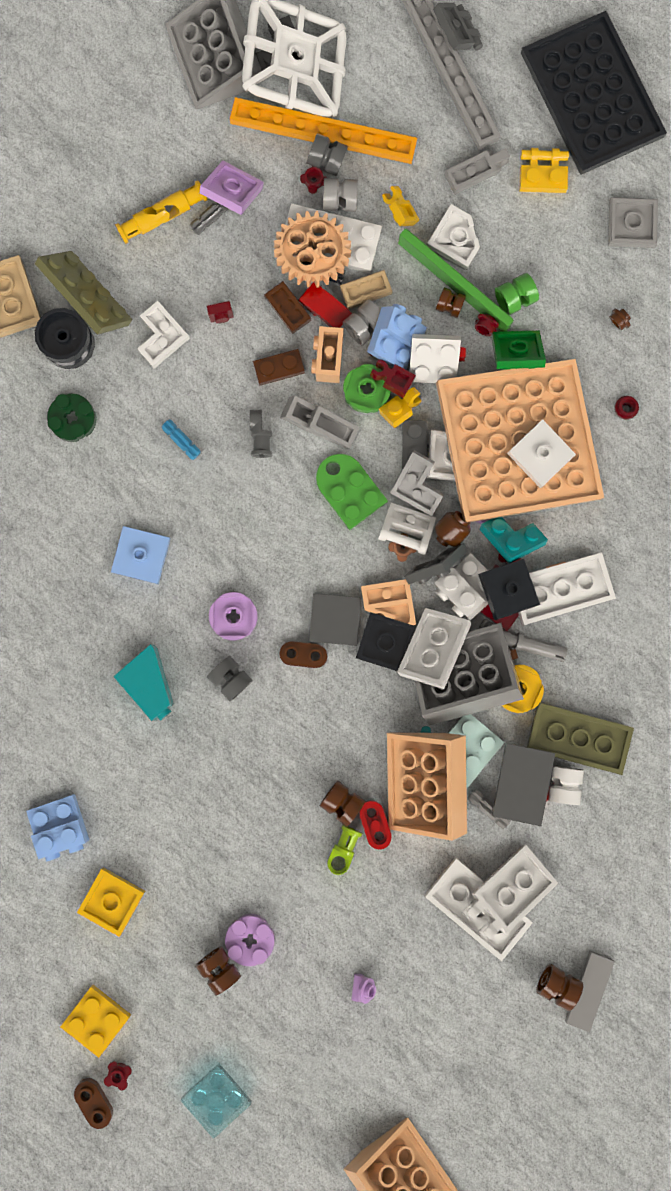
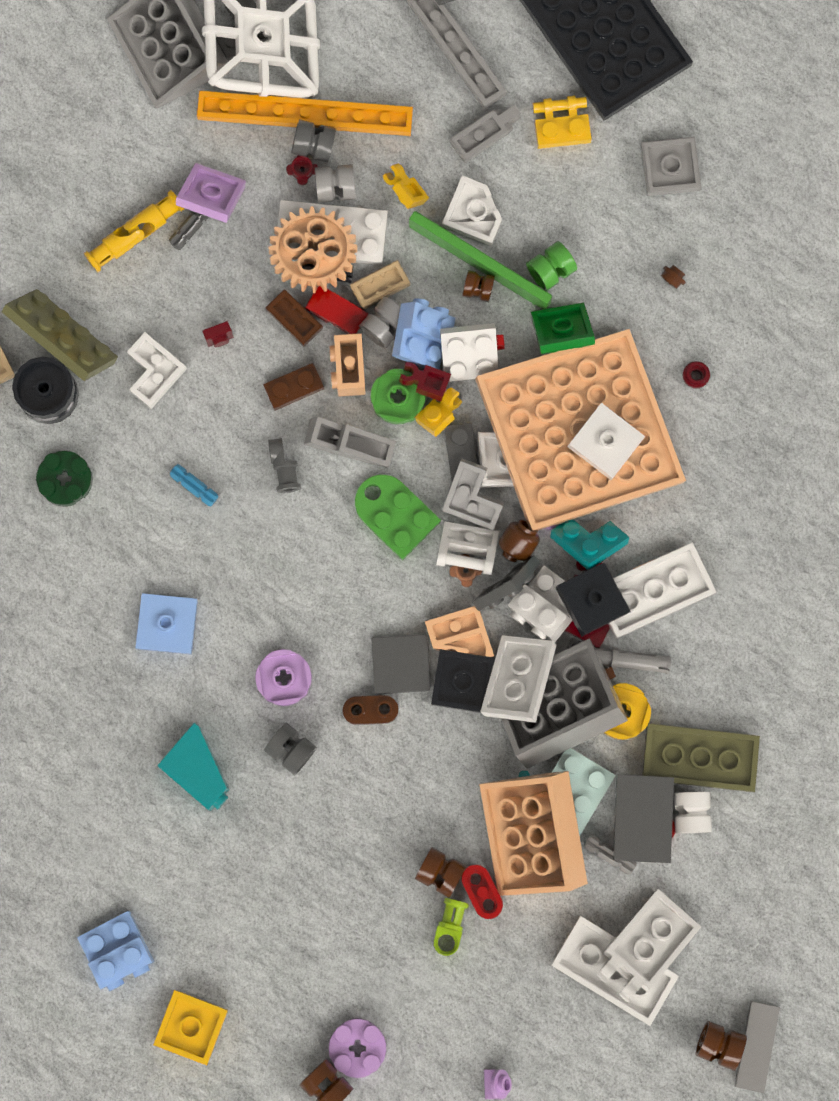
camera: 10 degrees left, 5 degrees down
(486, 324) = (522, 305): dark red plate -> none

